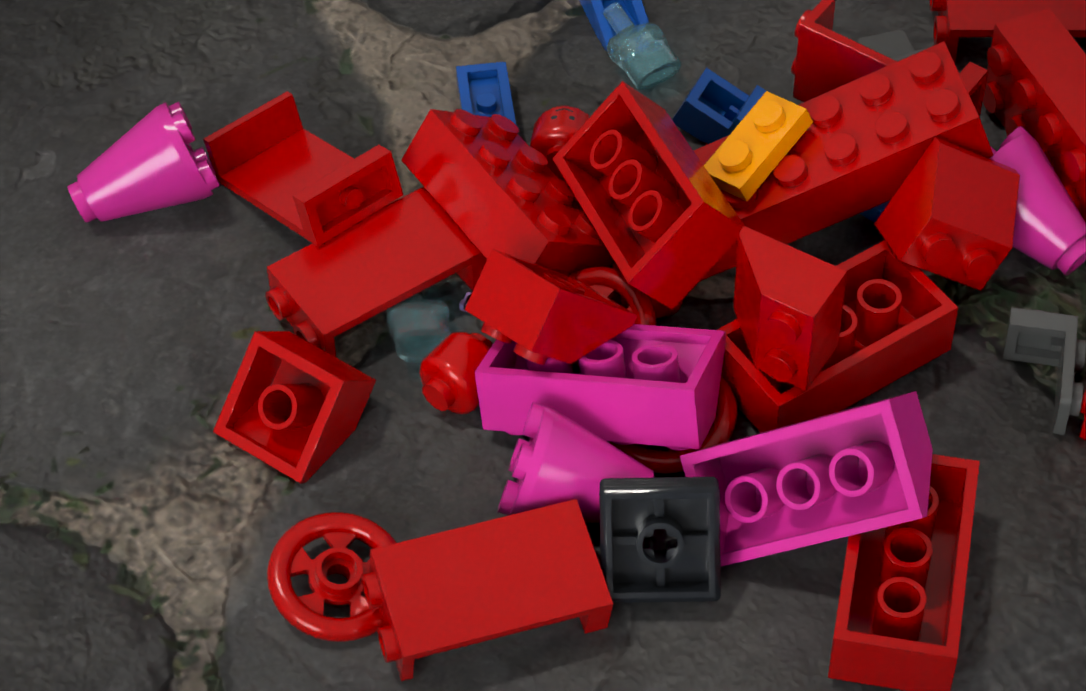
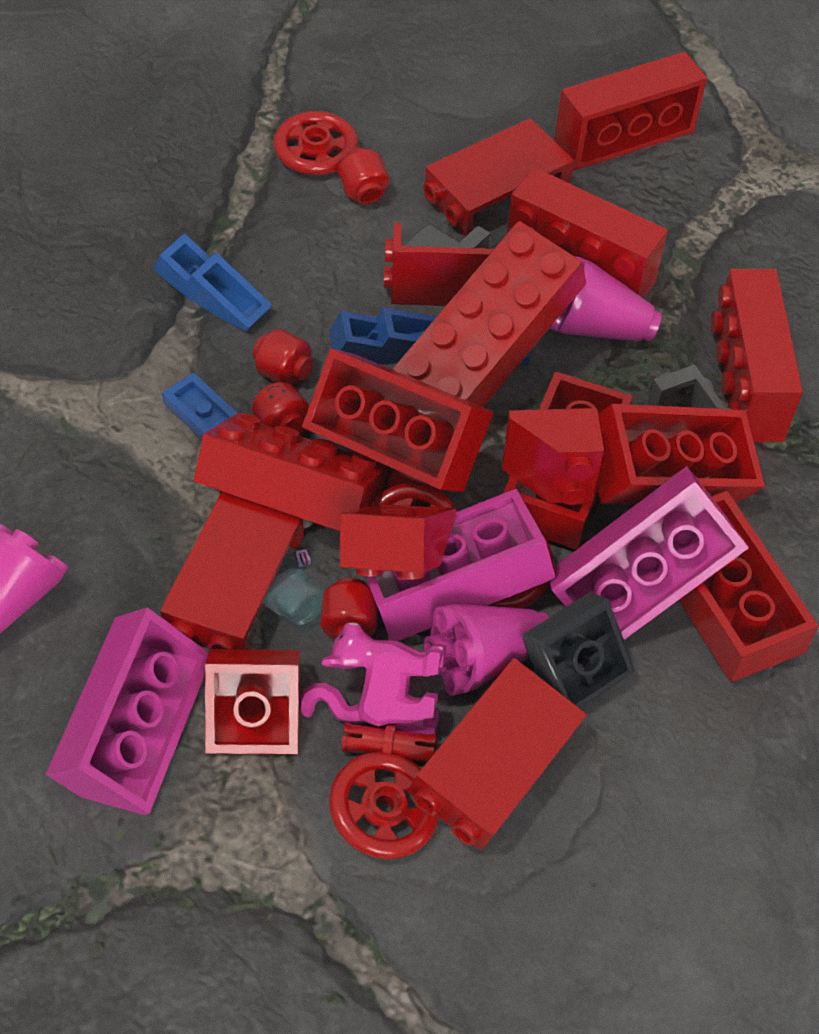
camera: 40 degrees left, 5 degrees up
(165, 352) = (130, 713): none -> dark pink slope
(299, 175) = (123, 530): red panel -> none
(389, 515) = (388, 741): none -> red pin
(433, 454) = (386, 684): none -> dark pink animal
(605, 75) = (283, 357): none -> red head
(640, 49) = (272, 314): clear light blue piece -> none
(757, 145) = (443, 348): light orange plate -> none
(953, 214) = (586, 337): red slope -> none
(971, 390) = (654, 443): none -> red brick

